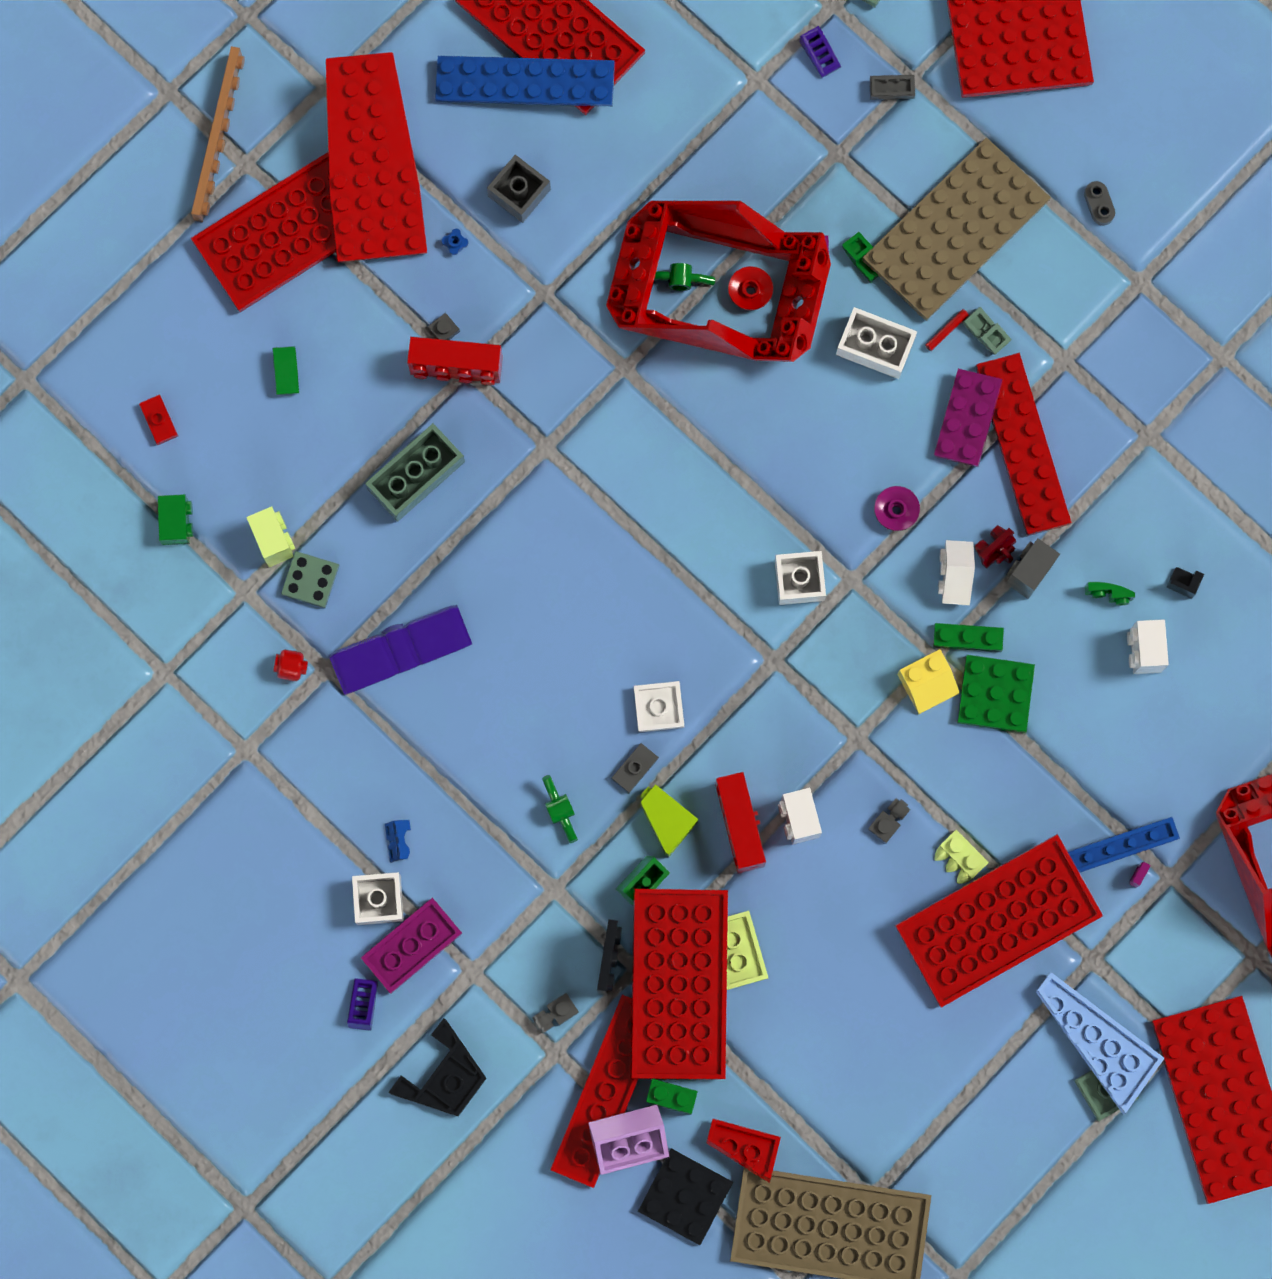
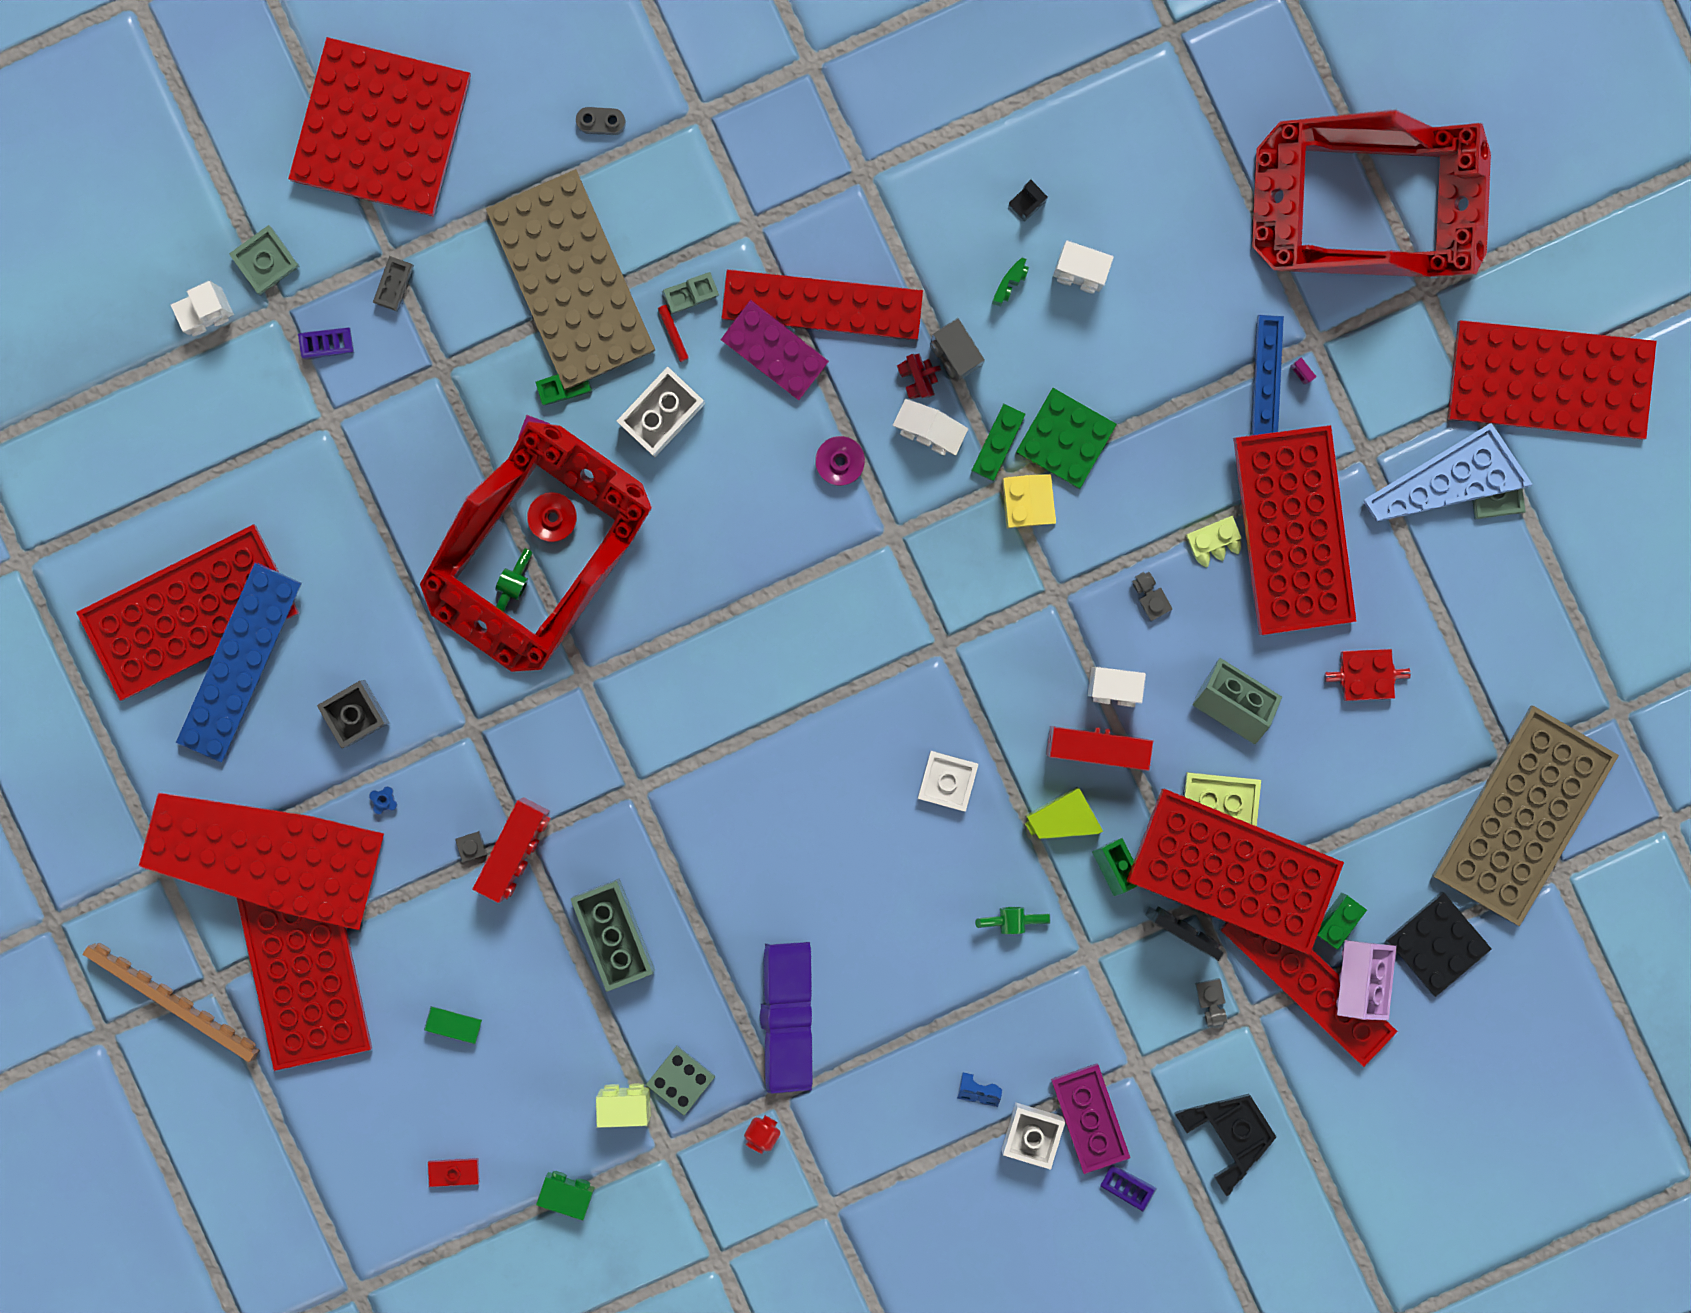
camera: 70 degrees left, 10 degrees up
(635, 768) = (999, 828): dark grey plate -> none
(745, 1146) = (1416, 866): red wing -> none
(800, 577) = (874, 588): white brick -> none
(829, 930) = (1237, 701): none -> sand green slope
(898, 1037) = (1367, 675): none -> red plate

